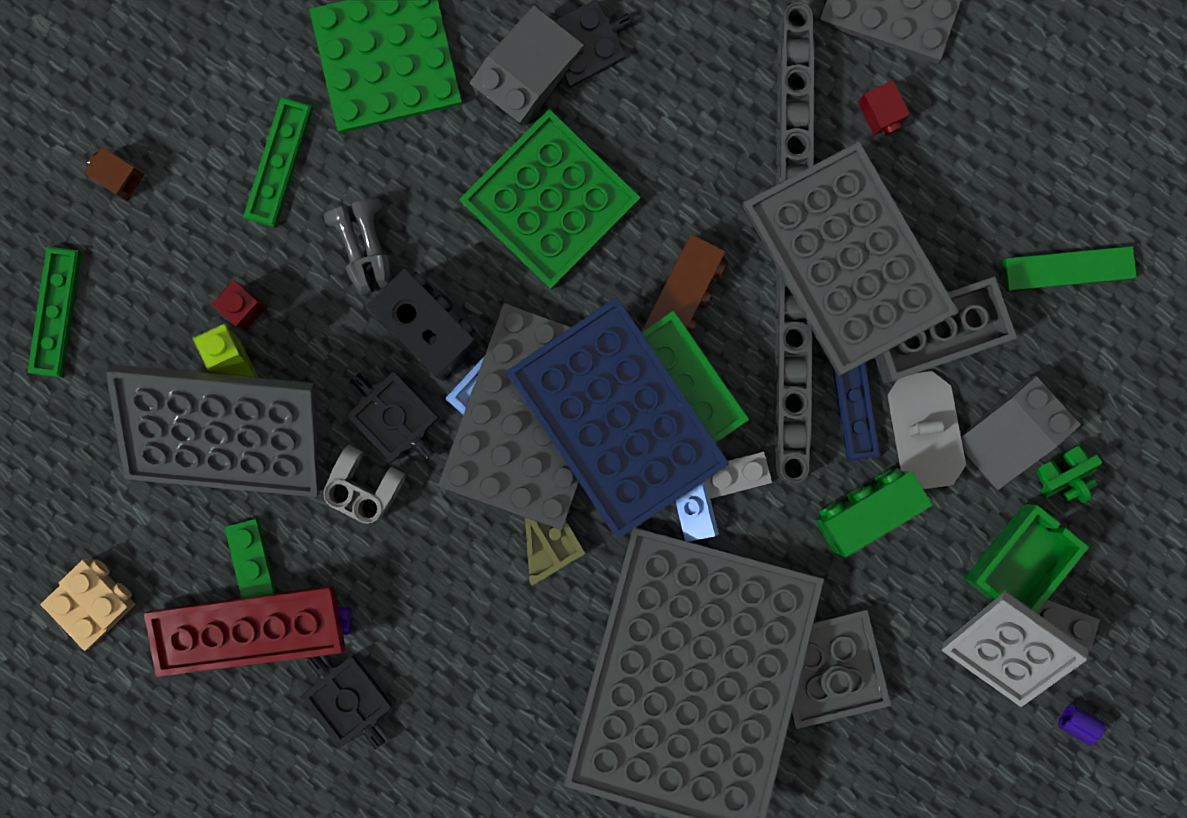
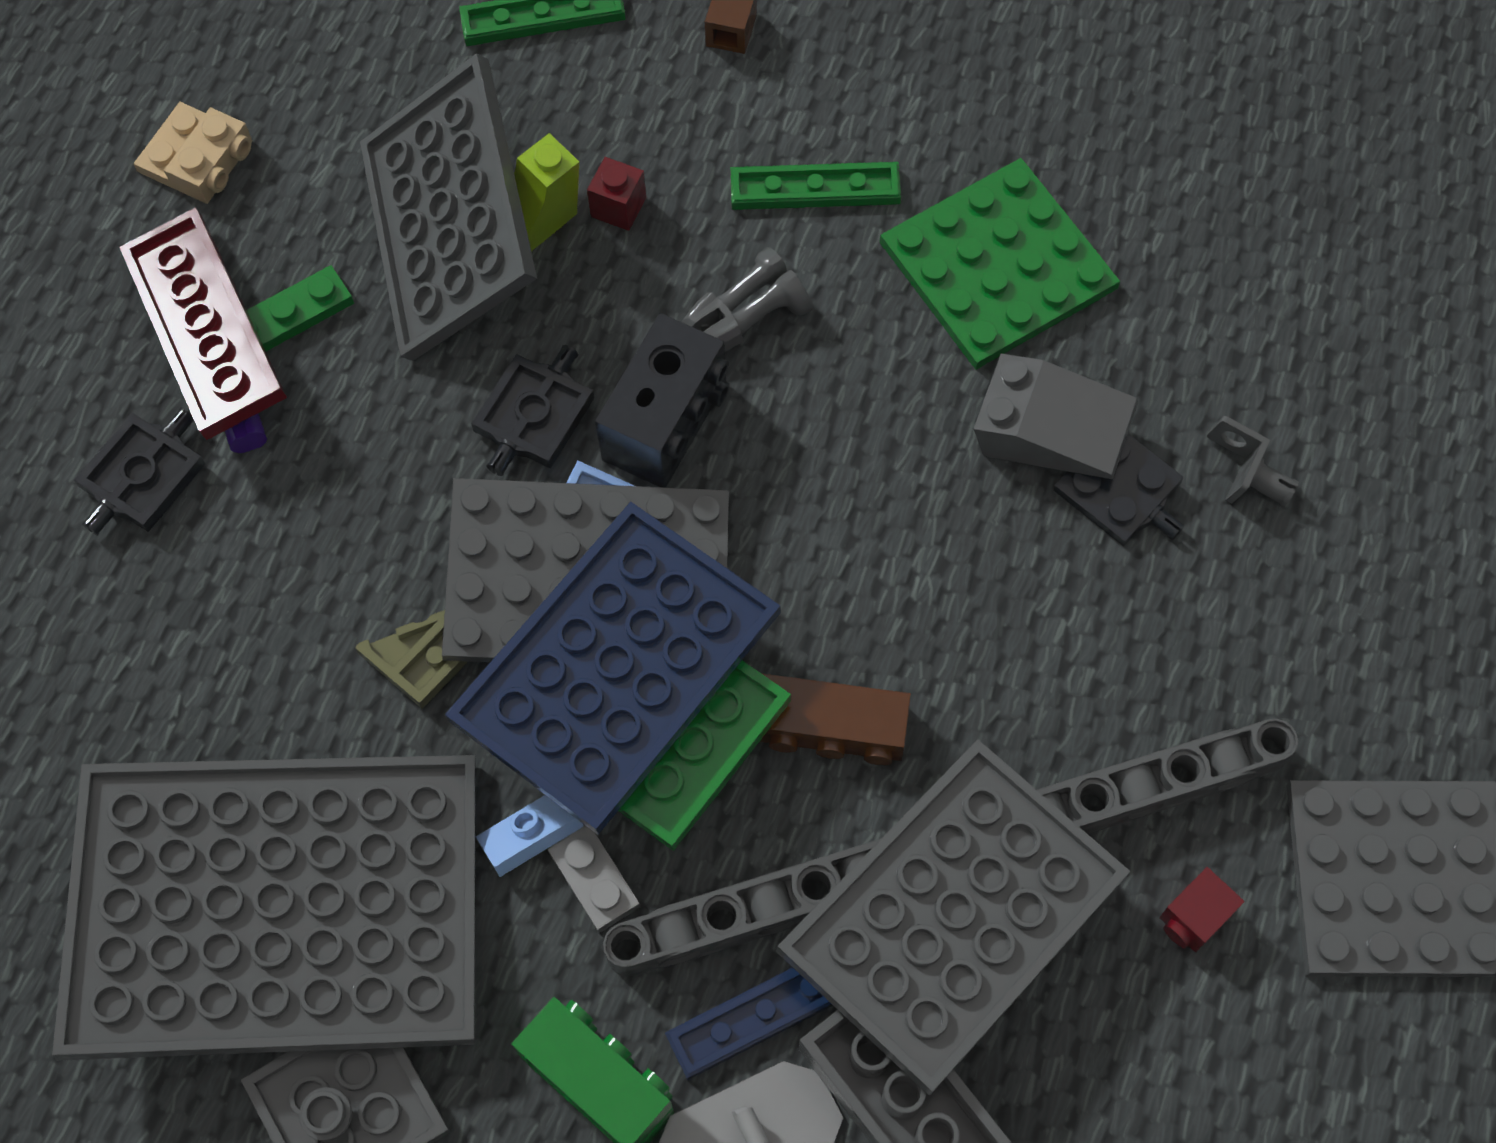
camera: 75 degrees right, 20 degrees down
(357, 494) = (401, 399): light grey piece -> none
(550, 199) = (890, 509): green plate -> none

